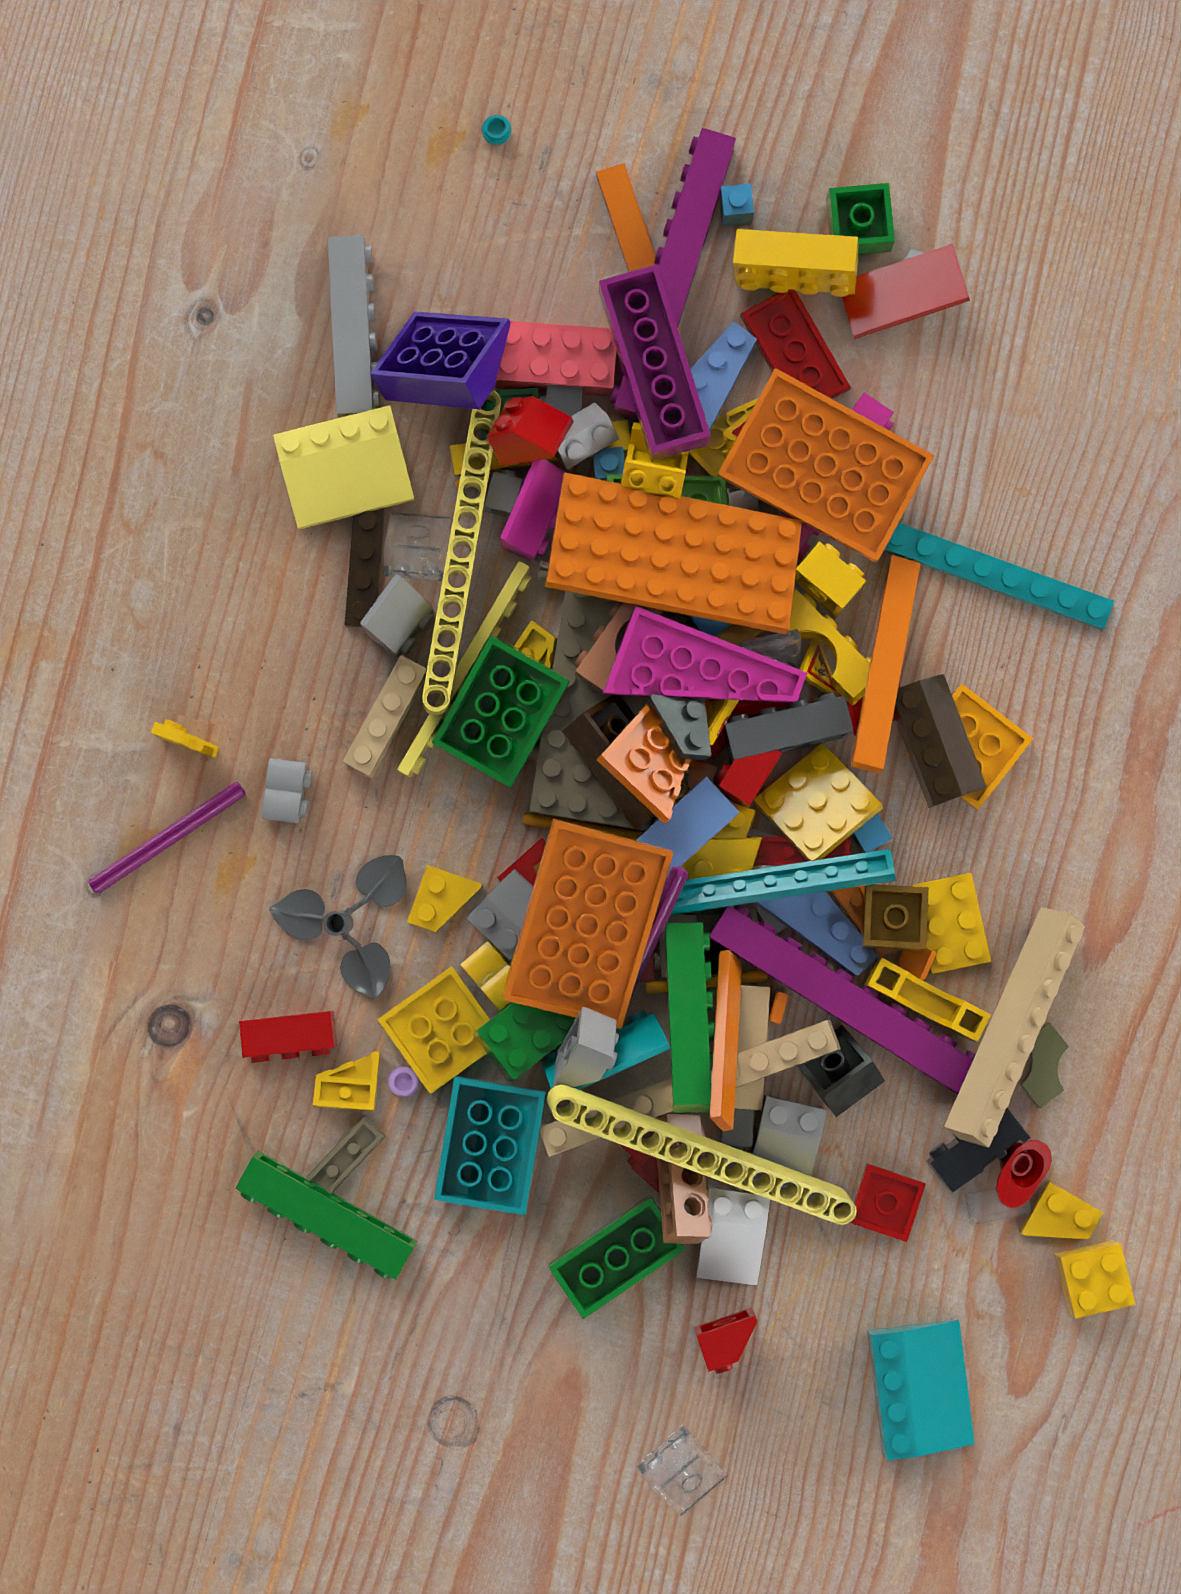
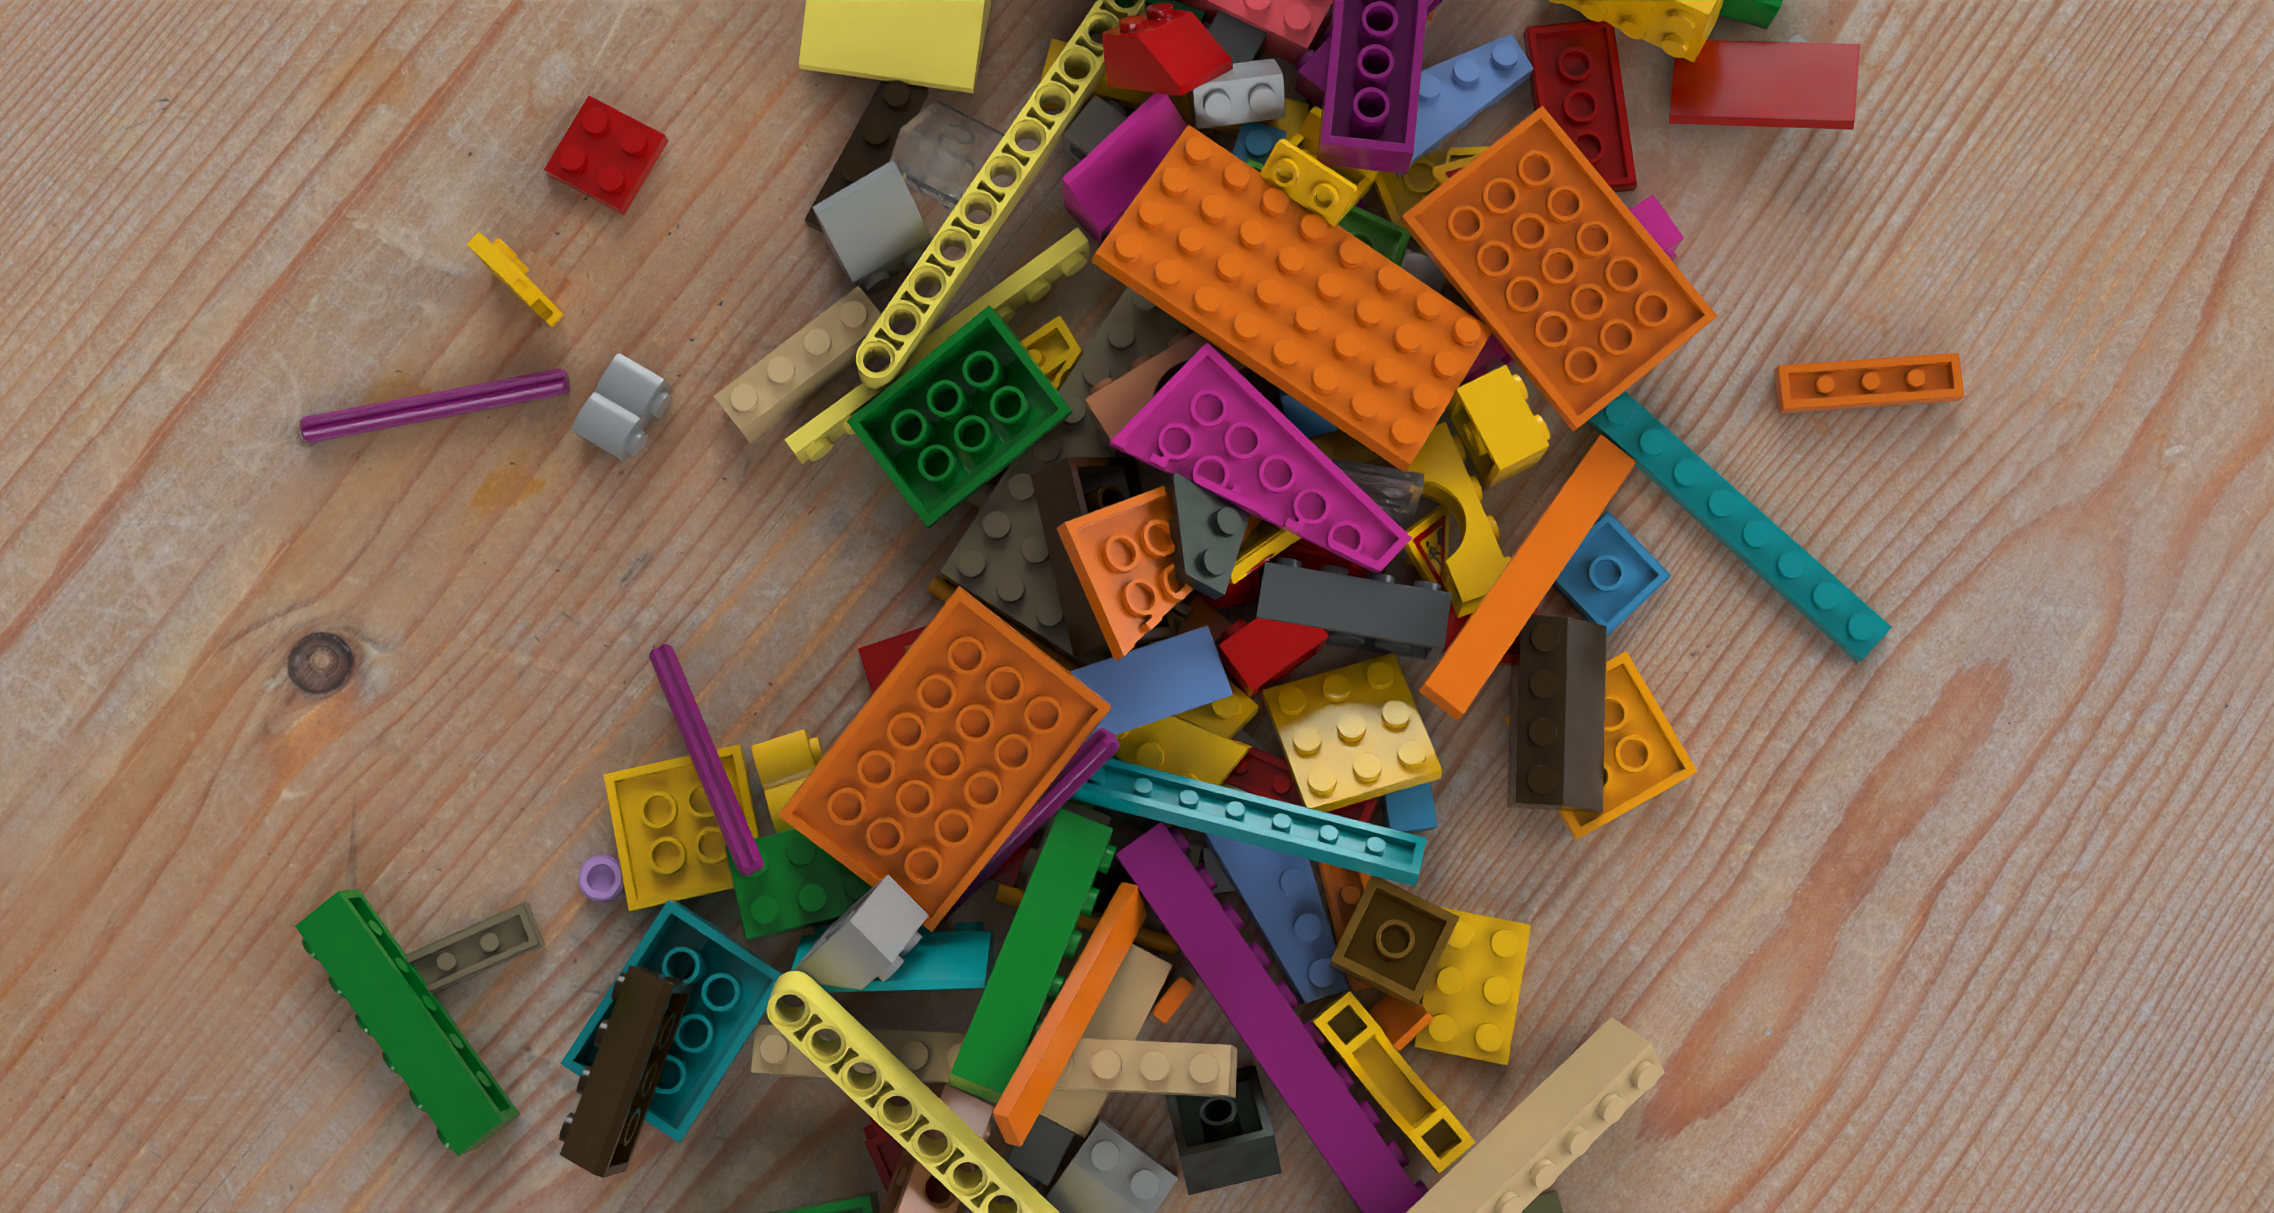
camera: 25 degrees right, 5 degrees down
(200, 634) = (606, 155): none -> red plate
(288, 1036) = (471, 744): red brick -> none
(302, 913) = (571, 594): dark grey plant -> none
(349, 1086) = (524, 851): yellow wing -> none
(438, 984) = (706, 761): none -> magenta axle
(440, 898) = (768, 644): yellow wing -> none
(477, 1186) = (625, 1070): none -> dark brown slope
(503, 912) = (836, 693): light grey slope -> none
(933, 639) = (1609, 574): none -> dark azure tile
(1041, 454) = (1868, 383): none -> orange plate

